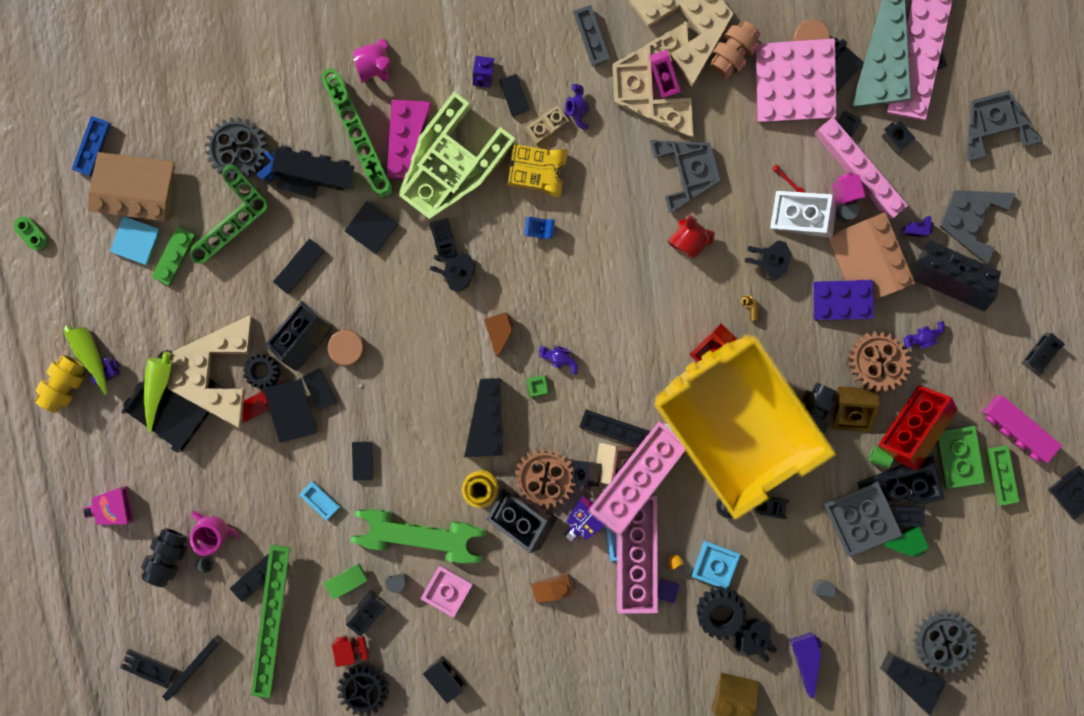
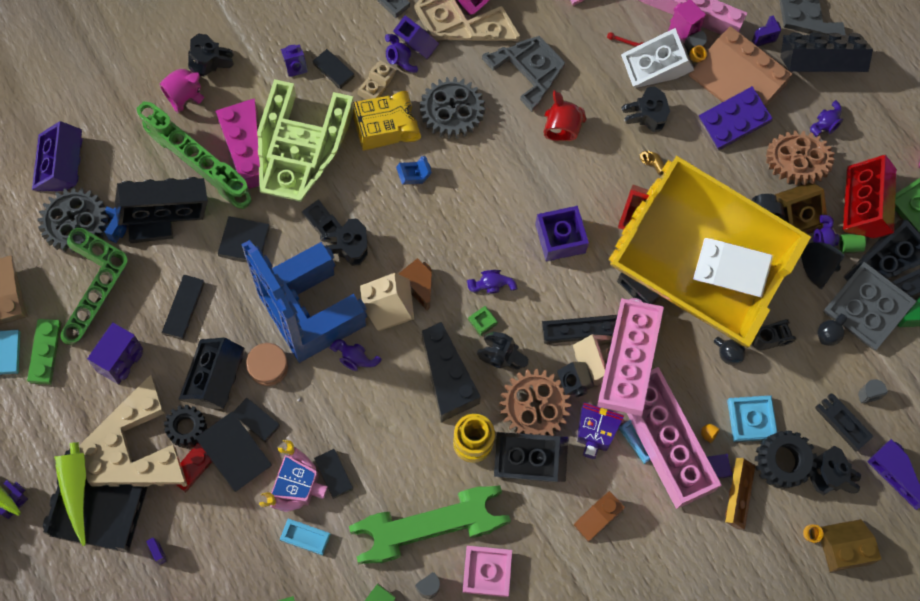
camera: 30 degrees left, 20 degrees down
(202, 463) = (156, 550): none -> dark purple tile
(227, 289) = (115, 353): none -> dark purple brick
(243, 83) = (57, 158): none -> dark purple slope
(327, 456) = (294, 482): none -> torso
(374, 324) = (279, 292): none -> blue bracket
(405, 35) = (207, 55): none -> black hinge
(418, 371) = (354, 355): none -> dark purple piece
(464, 340) = (388, 301): none -> tan slope
(539, 425) = (502, 352): none -> black hinge
(598, 98) = (415, 37): none -> dark purple slope
(604, 163) = (449, 92): none -> dark grey gear
(637, 342) = (561, 233): none -> dark purple brick
(672, 621) = (740, 493): none -> dark orange plate
(716, 677) = (816, 532): none -> light orange hinge
(760, 443) = (733, 267): none -> white slope
(787, 603) = (844, 422): none -> black hinge
(818, 525) = (832, 331): none -> black piece
(843, 464) = (820, 262): none -> black shield
(845, 223) = (696, 52): none -> light orange hinge
(861, 444) = (826, 234): none -> dark purple piece

